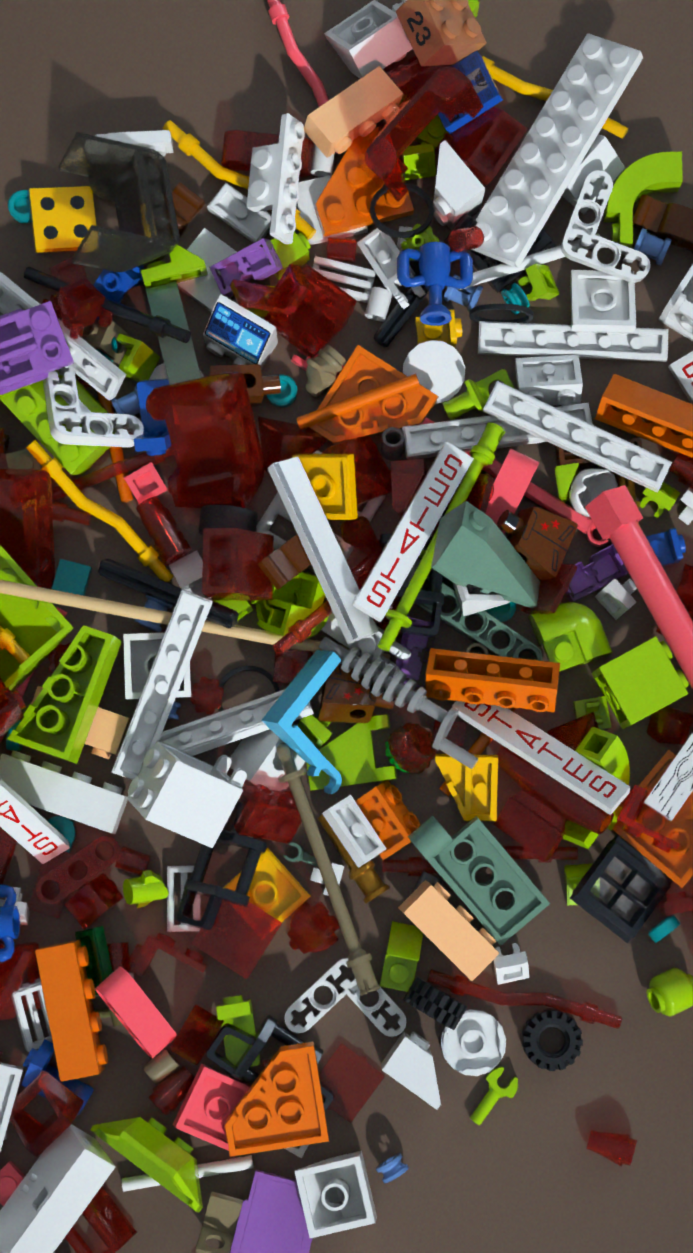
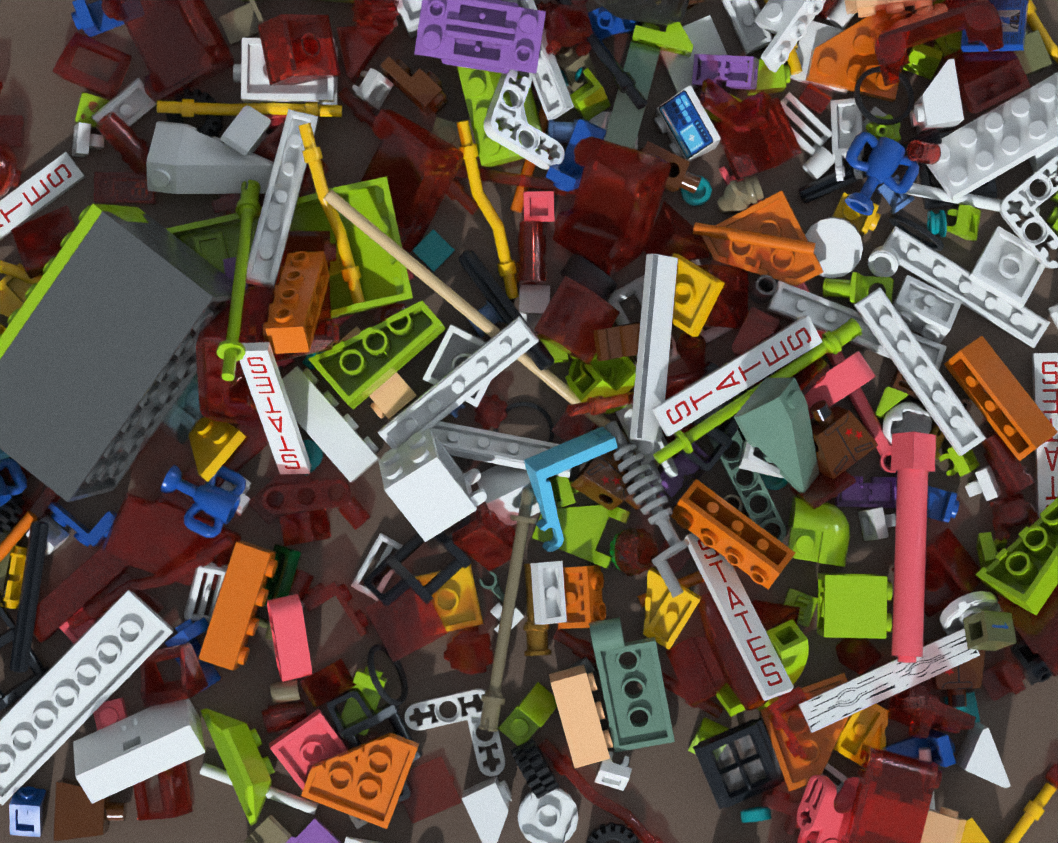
camera: 35 degrees right, 5 degrees up
(144, 889) = (351, 541): lime piece -> none
(241, 1007) = (404, 686): none -> black tyre
(487, 358) = (883, 261): none -> white tile
(515, 100) = (1035, 56): none -> olive brick

